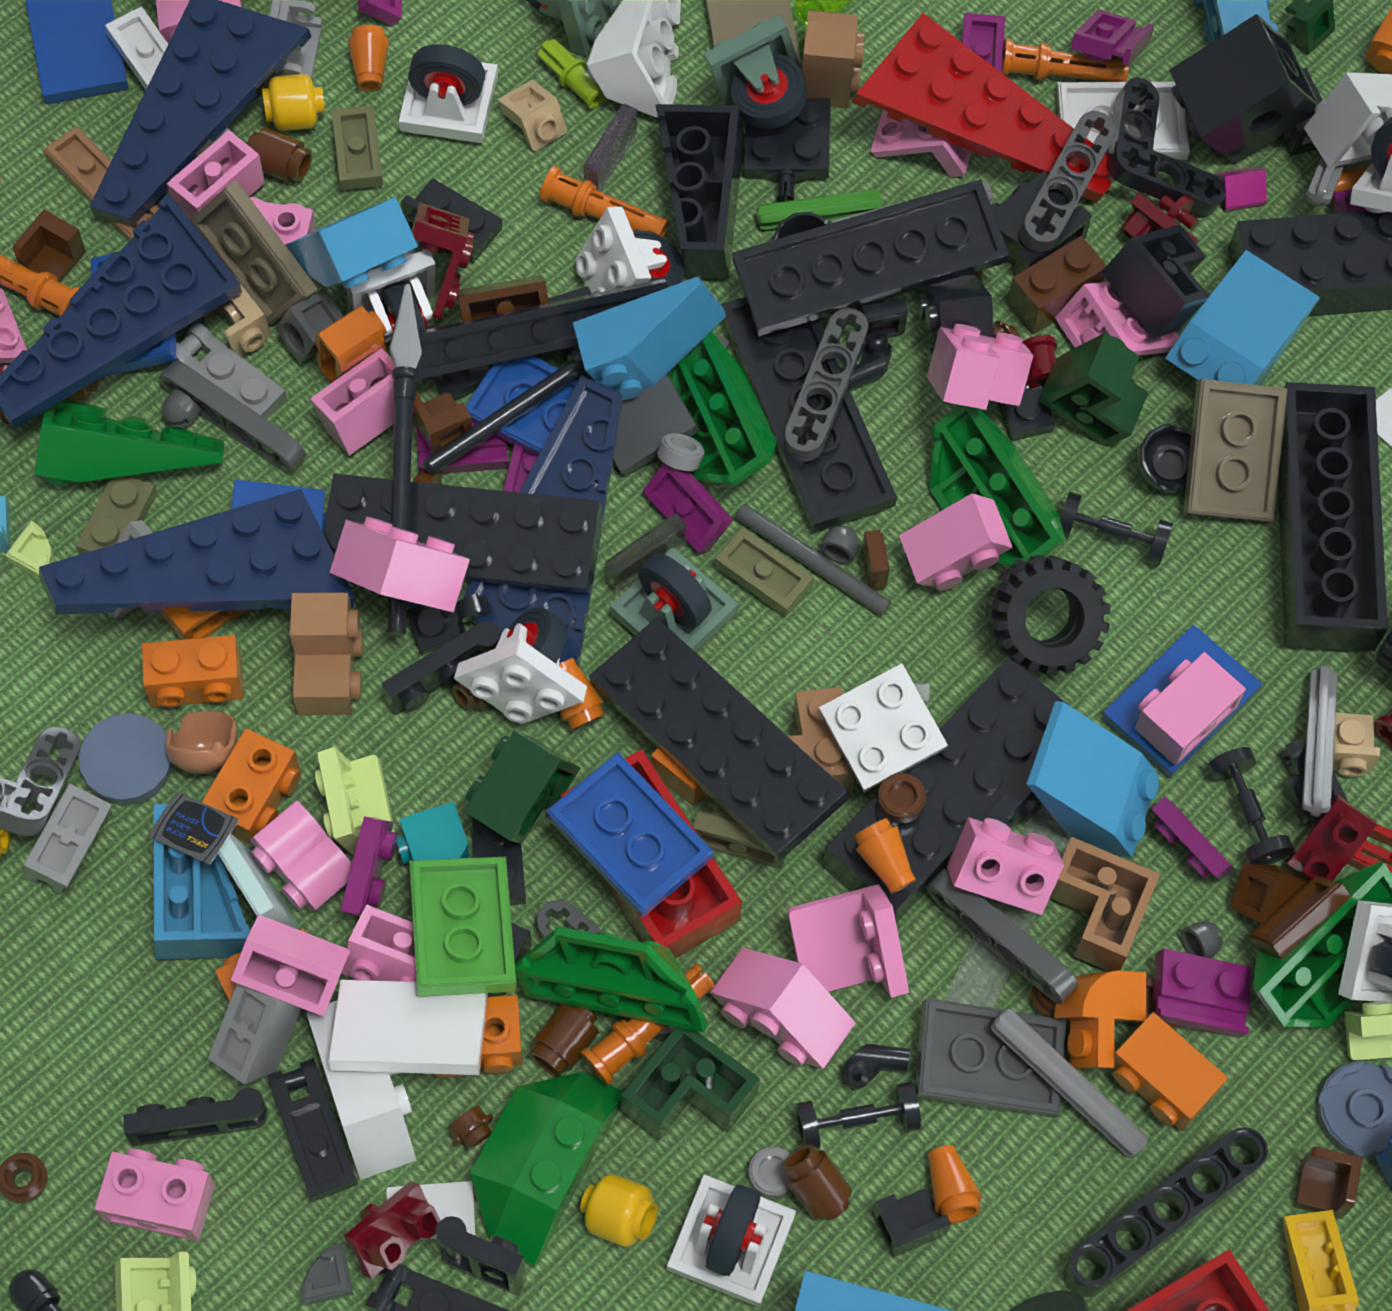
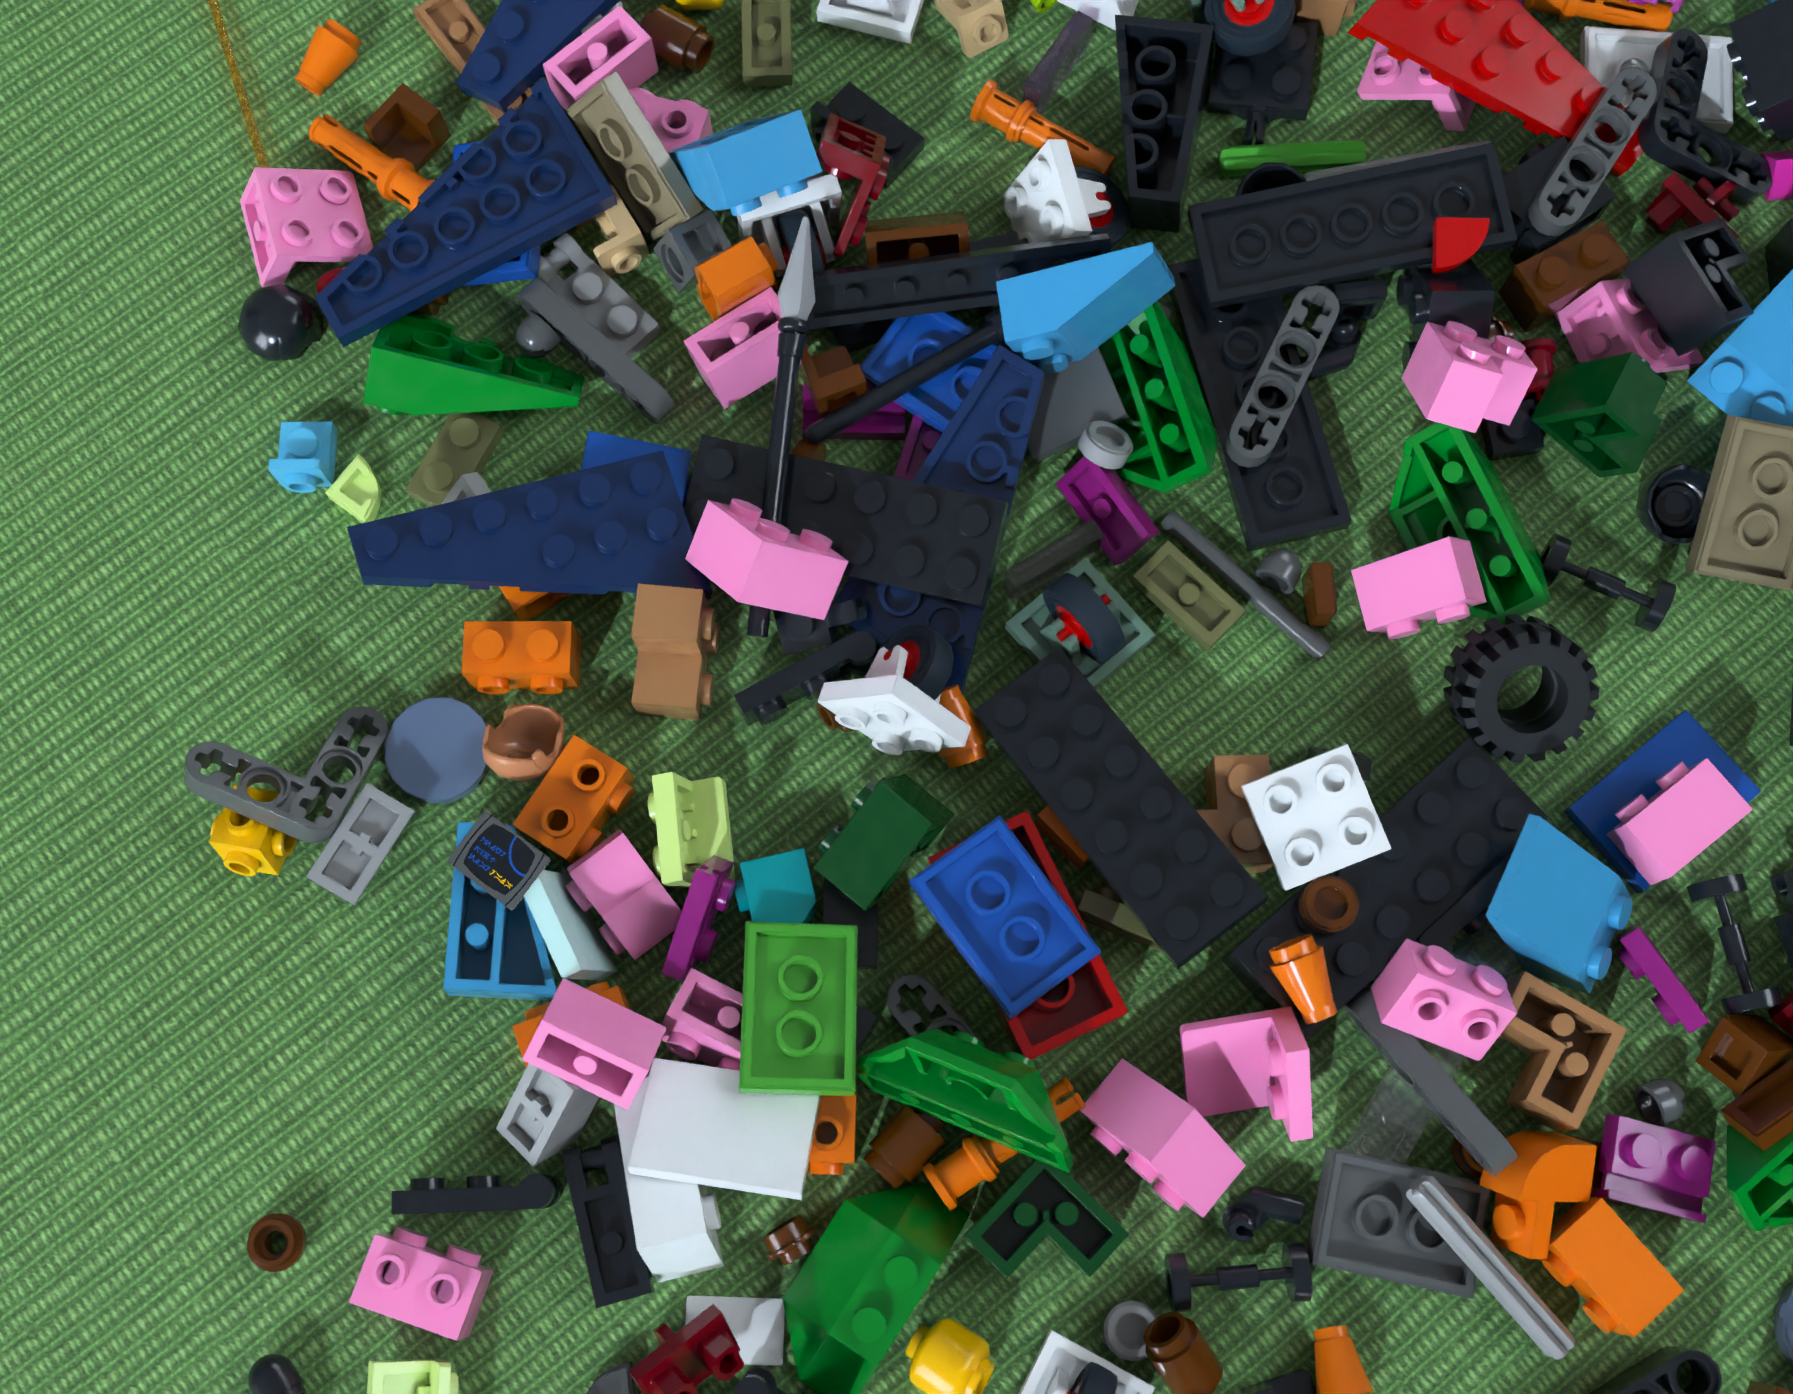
camera: 10 degrees right, 10 degrees up
(958, 260) = (1456, 241): none -> red tile

